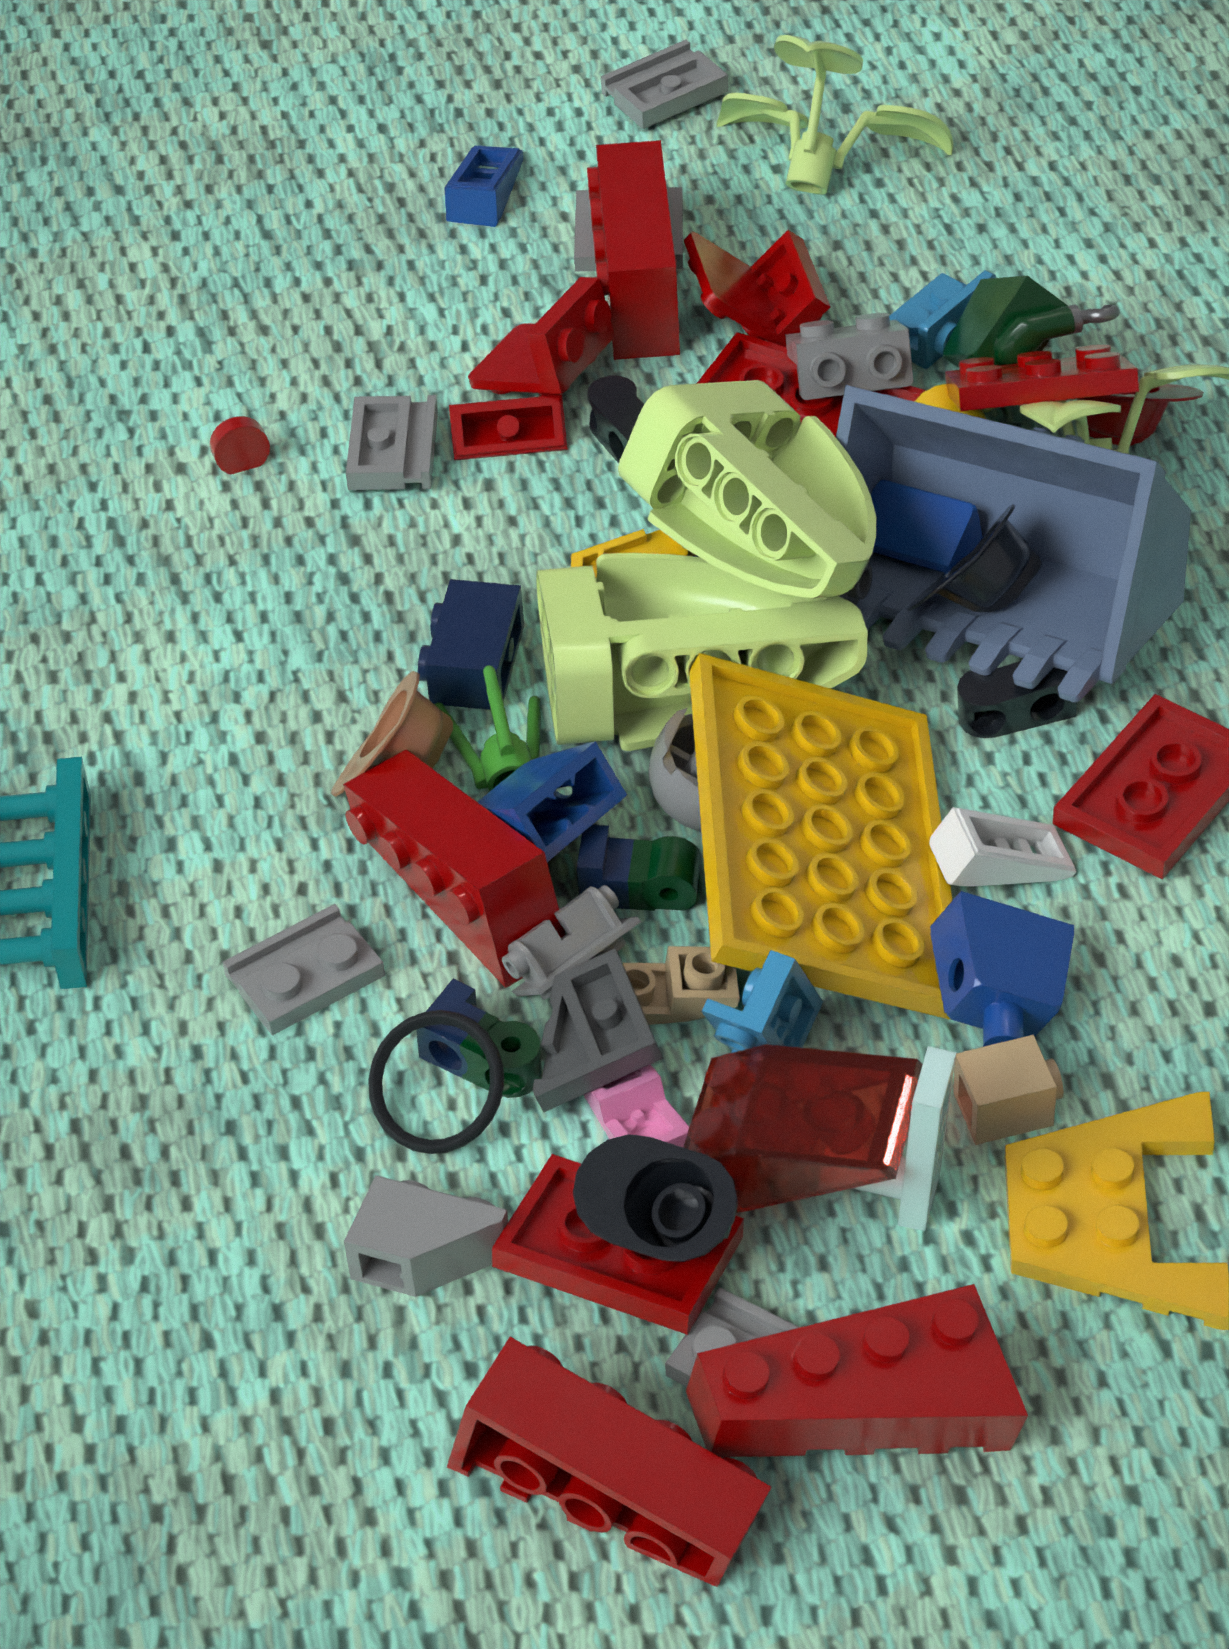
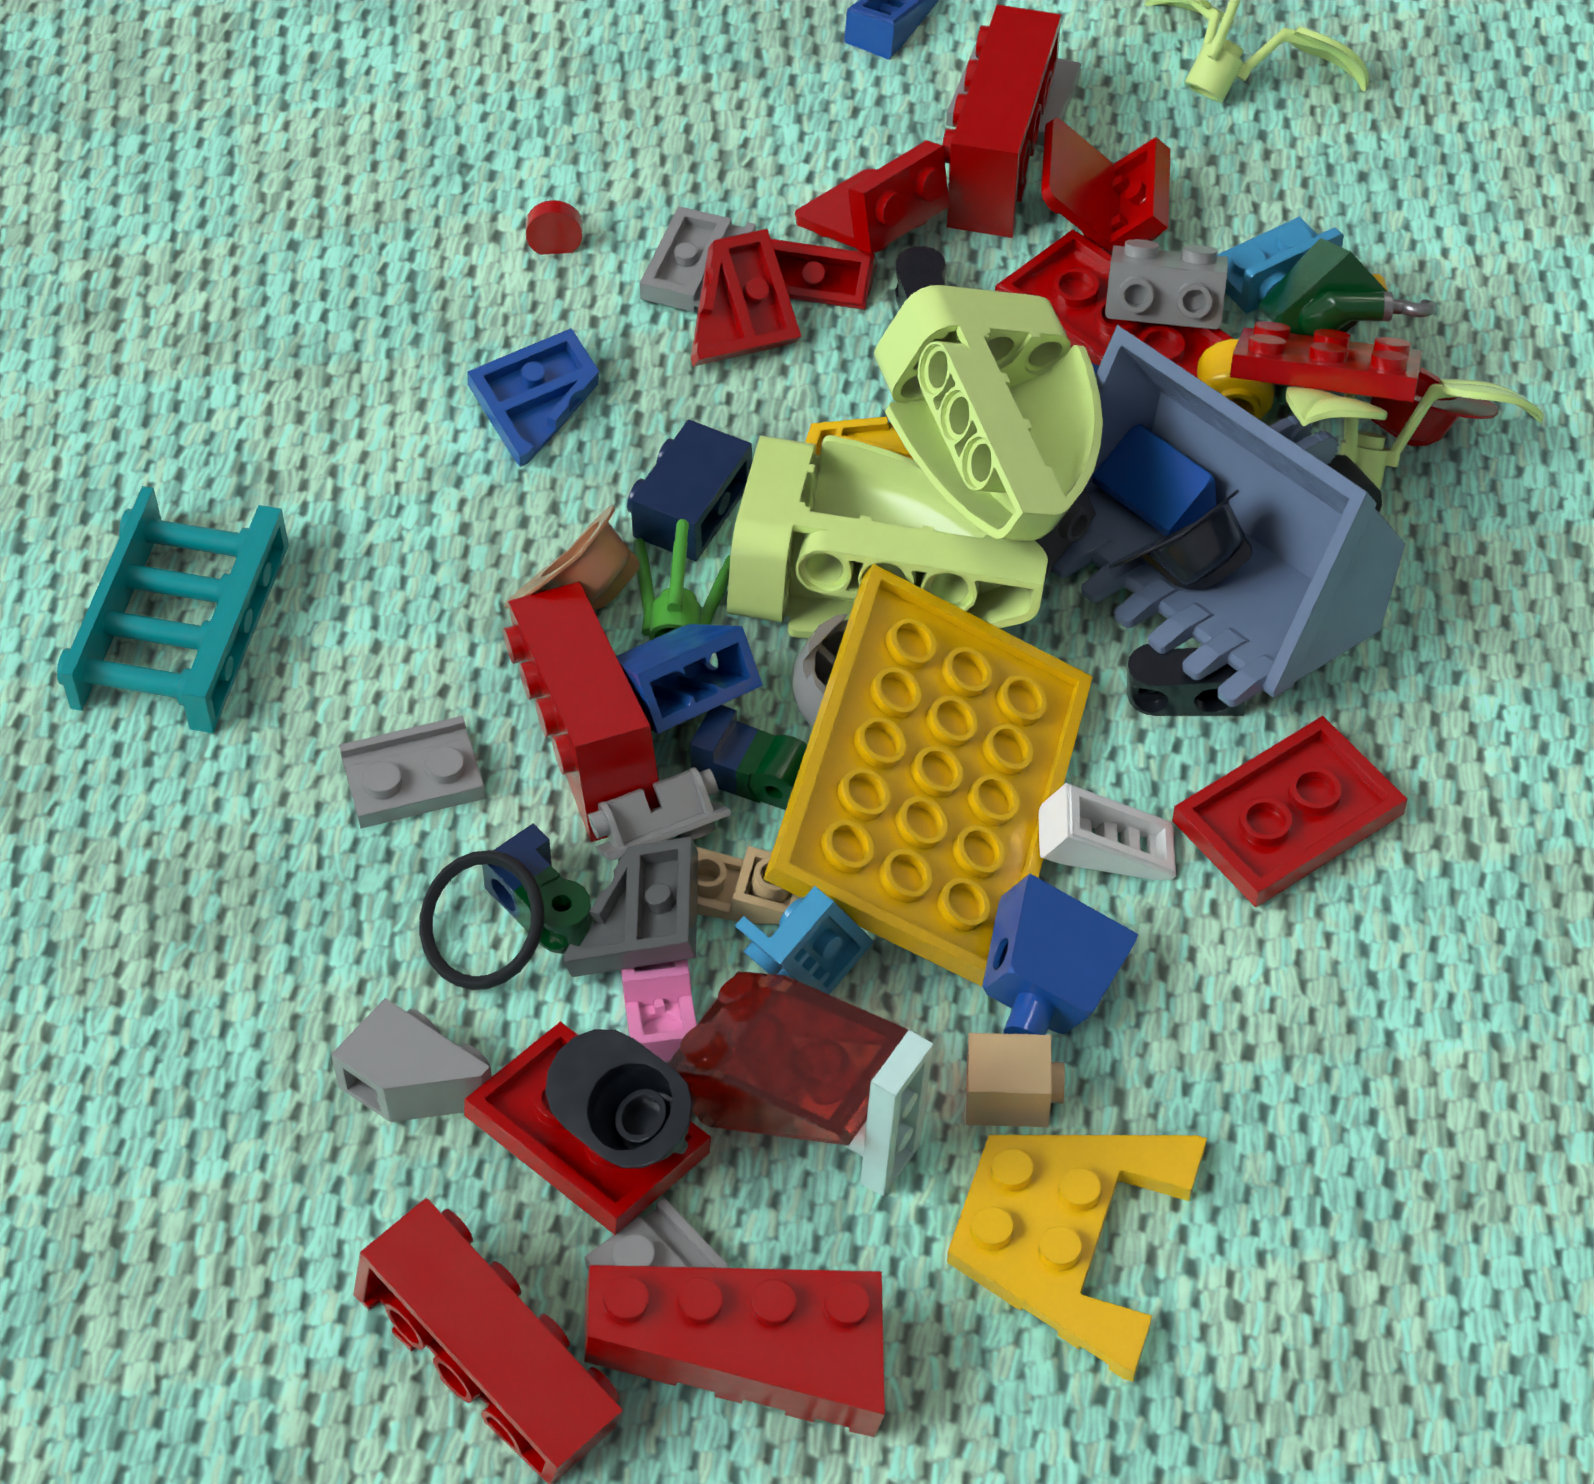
camera: 15 degrees right, 5 degrees up
(280, 595) = (534, 391): none -> blue wing
(453, 464) = (742, 301): none -> red wing

